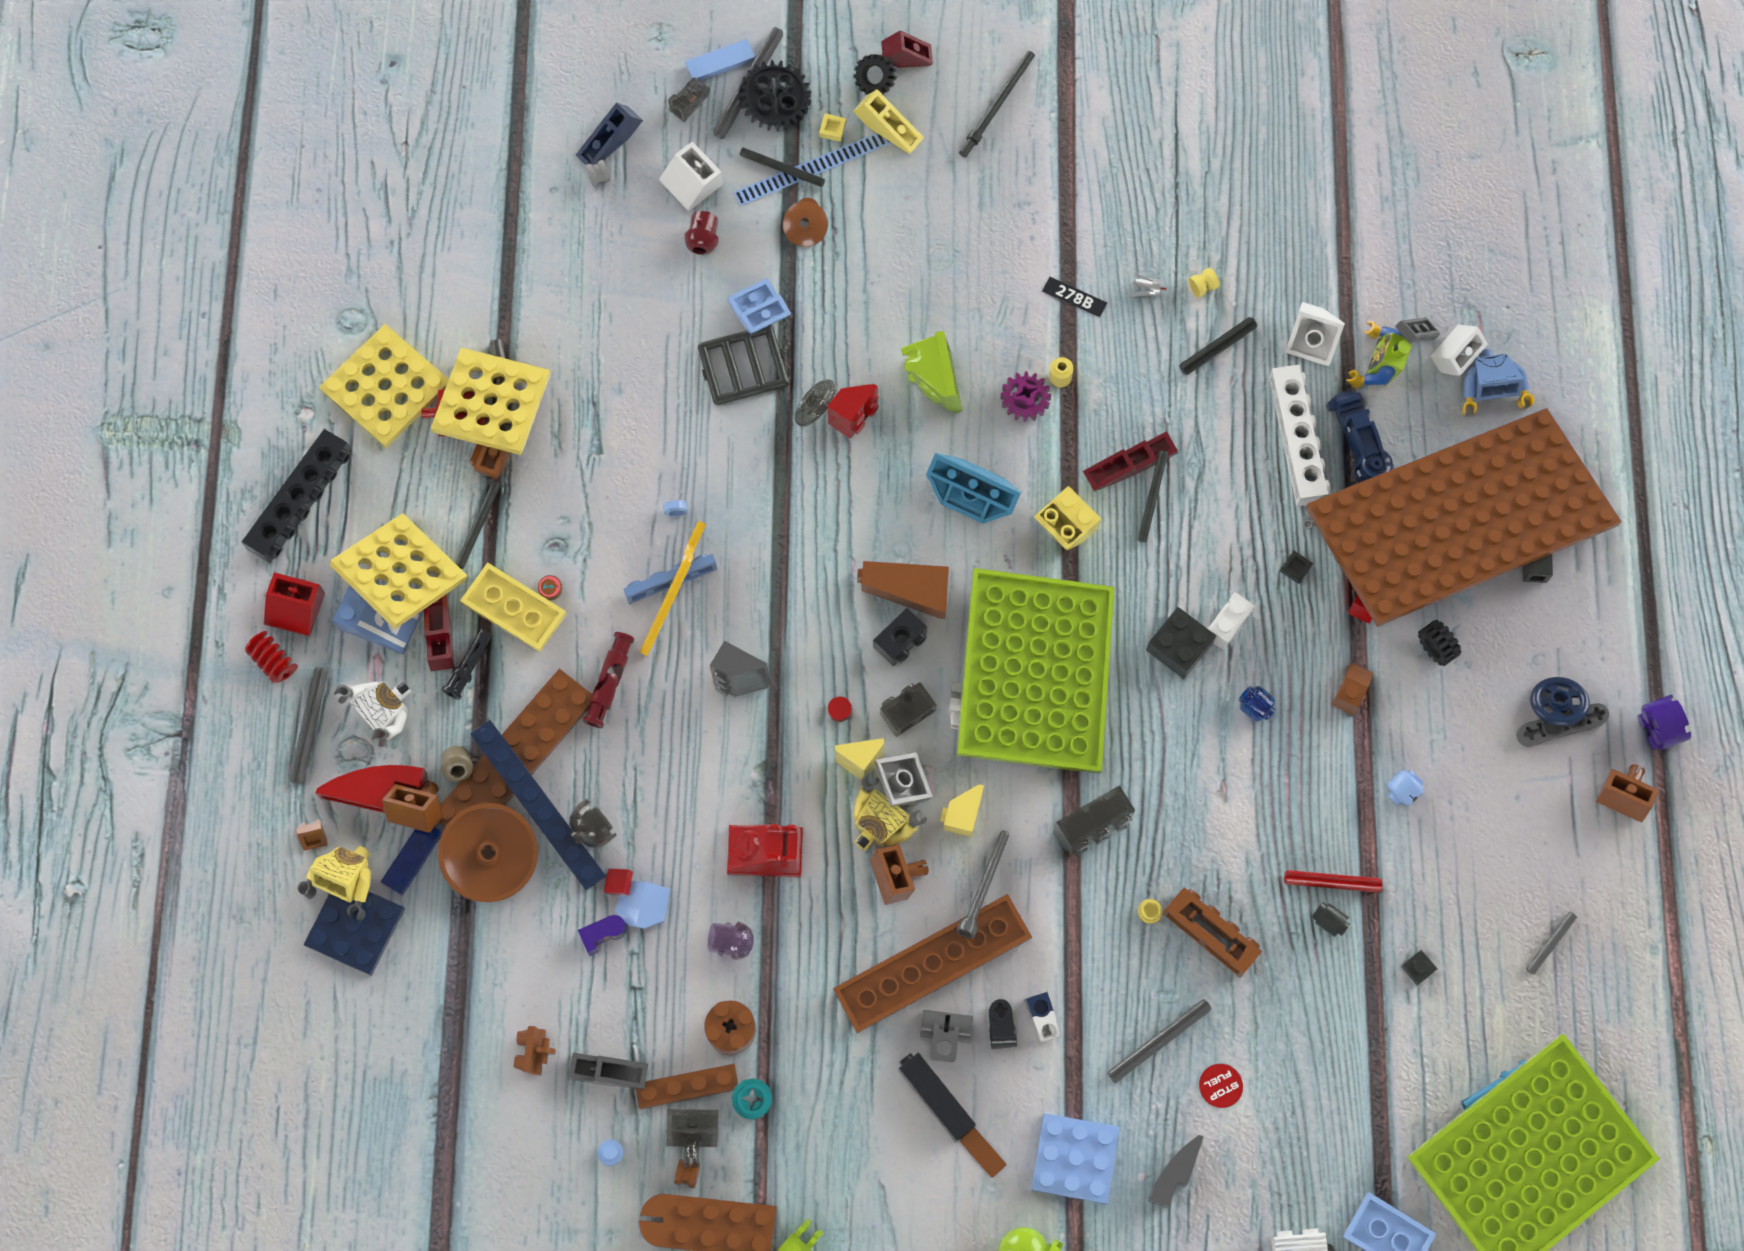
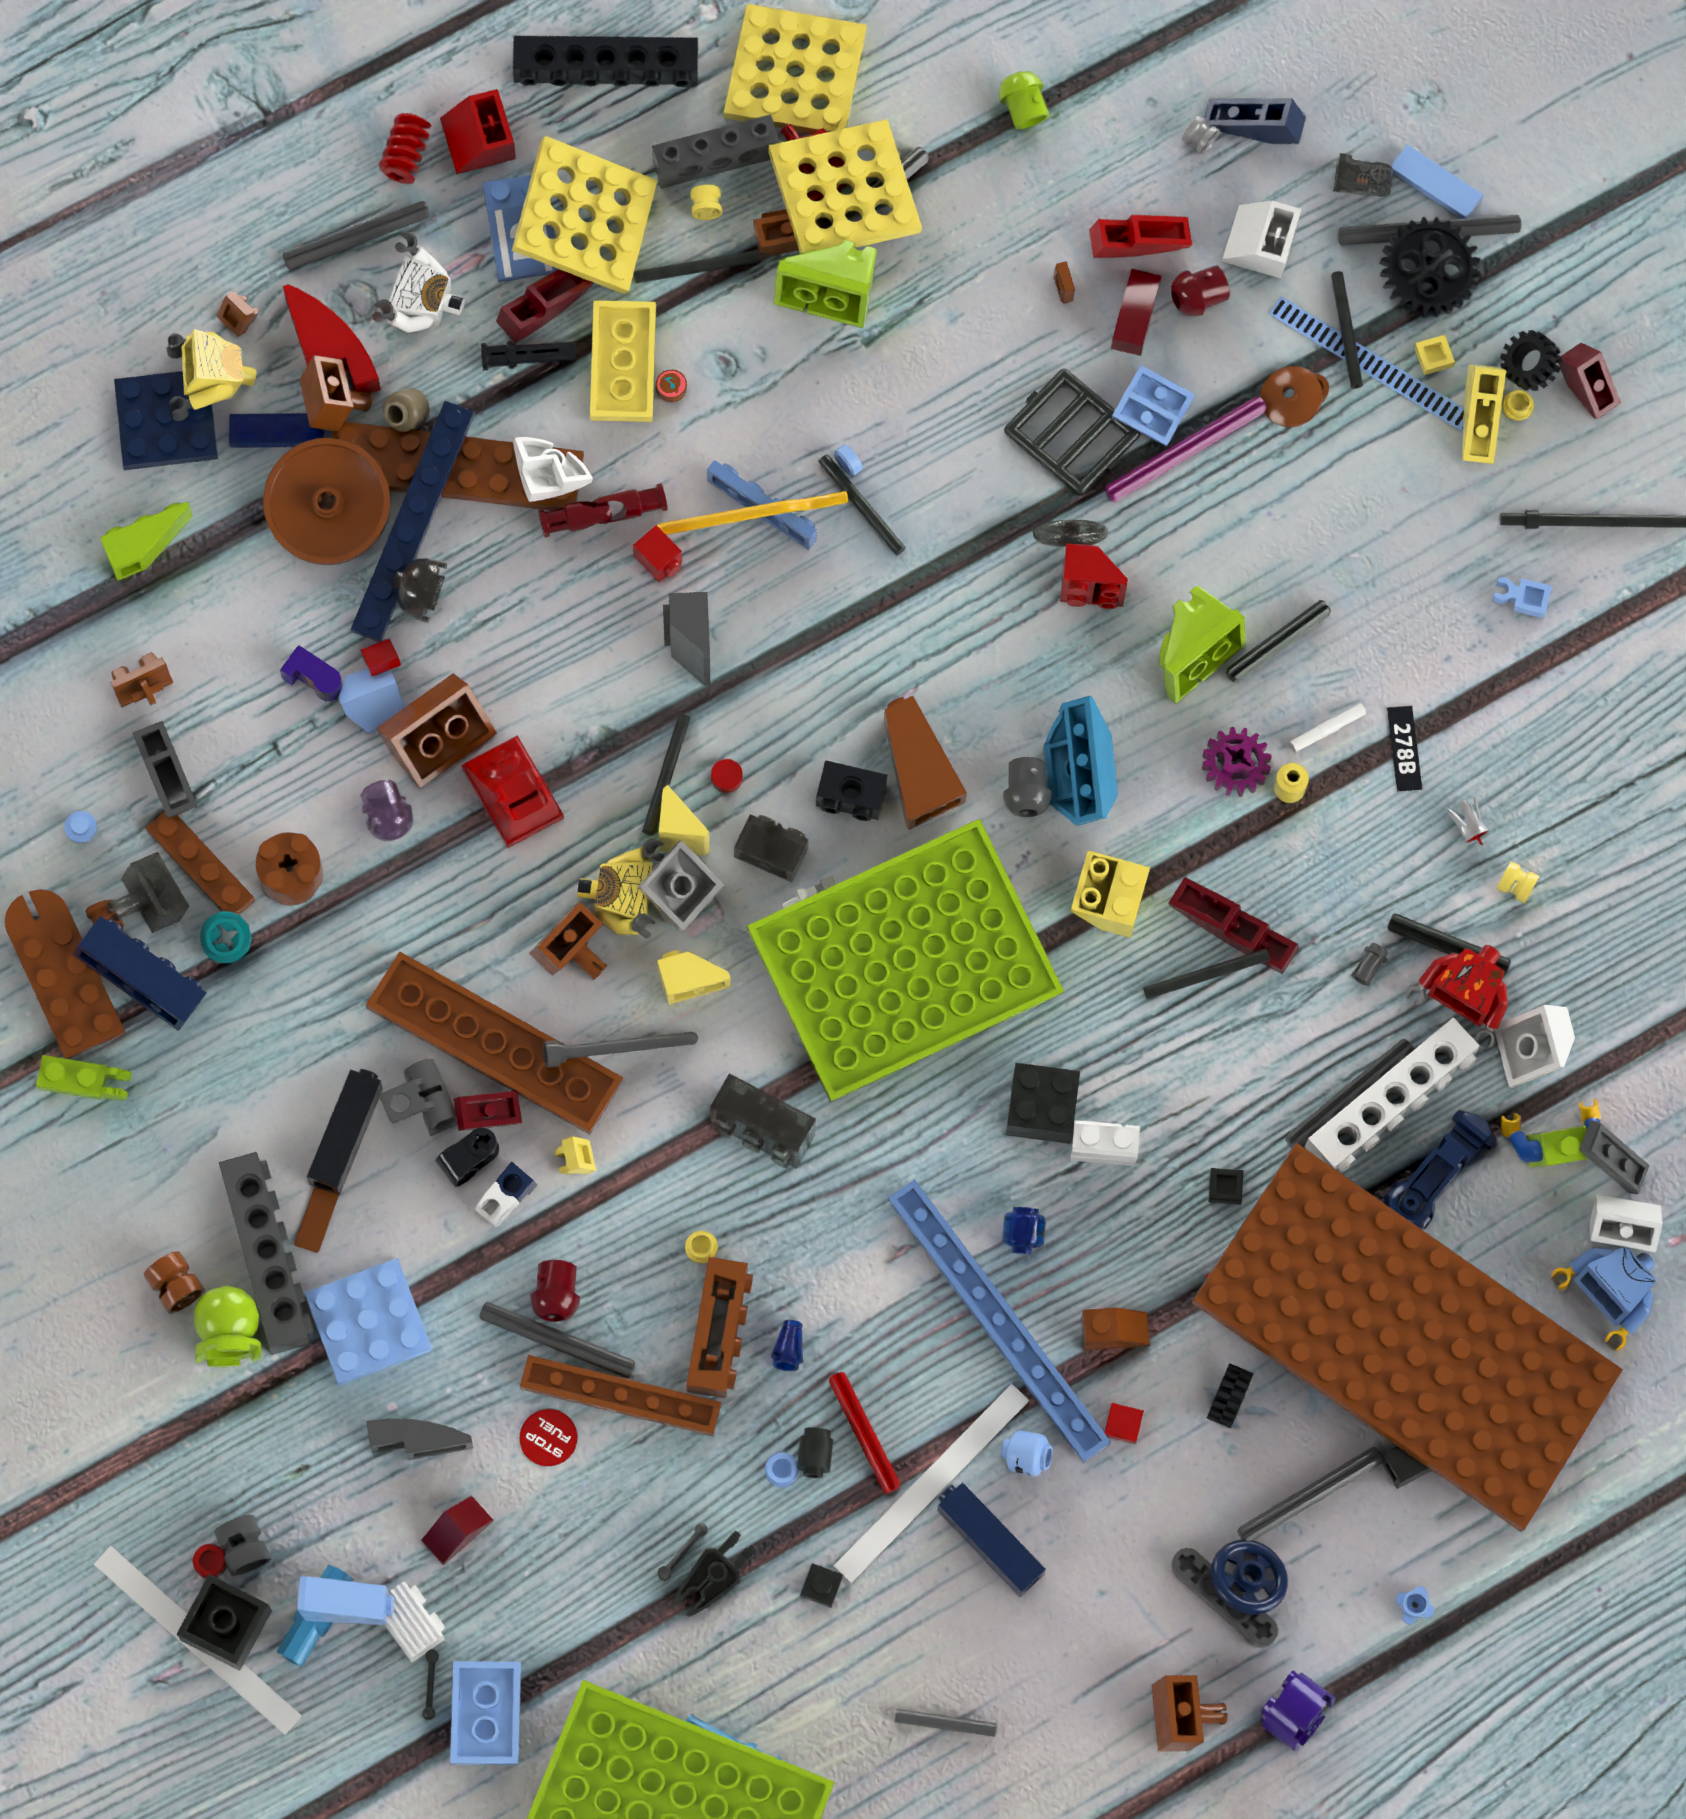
camera: 55 degrees right, 0 degrees up
(408, 465) = (714, 151): none -> dark grey brick
(434, 997) = (140, 543): none -> lime slope
(439, 491) = (706, 202): none -> light yellow wheel
(503, 259) = (1024, 99): none -> lime piece
(549, 447) = (829, 282): none -> lime piece
(560, 698) = (546, 470): none -> white brick
(640, 248) = (1139, 236): none -> red slope
(642, 309) = (1064, 282): none -> dark orange tile
(662, 662) = (658, 554): none -> red brick
(690, 279) = (1135, 312): none -> dark red slope
(692, 874) = (436, 730): none -> dark orange slope
(709, 518) = (862, 504): none -> pearl dark grey bar
(745, 1171) = (139, 972): none -> dark blue brick
(799, 305) = (1185, 449): none -> magenta axle
(815, 746) = (666, 773): none -> pearl dark grey bar
(897, 99) = (1518, 405): none -> light yellow plate
(960, 327) = (1278, 641): none -> pearl dark grey axle
(967, 529) = (1027, 787): none -> dark grey piece
(979, 994) = (487, 1110): none -> dark red plate
(1022, 168) = (1529, 597): none -> light blue plate
(1034, 331) = (1327, 728): none -> white piece
(1043, 953) = (577, 1155): none -> light yellow tile
(1051, 1224) = (236, 1175): none -> dark grey brick
(1129, 1022) = (555, 1291): none -> dark red piece
(1203, 397) = (1370, 963): none -> dark grey pin
(1221, 1021) = (620, 1395): none -> dark orange plate
(1250, 894) = (789, 1346): none -> clear blue cone
(1252, 1182) = (456, 1529): none -> dark red slope
(1257, 348) = (1468, 986): none -> red torso
(1280, 460) = (1349, 1093): none -> dark grey axle
(1306, 754) = (999, 1321): none -> medium blue plate
(1328, 948) = (781, 1470): none -> light blue tile
(1354, 1063) = (665, 1571): none -> dark grey hinge
(1379, 1032) = (717, 1570): none -> pearl dark grey hinge
(1388, 860) = (931, 1483): none -> white sticker
(1416, 718) = (1123, 1423): none -> red tile
(1449, 843) = (990, 1538): none -> dark blue brick
(1525, 638) = (1310, 1495): none -> dark grey axle
(1633, 610) = (1419, 1596): none -> light blue plate

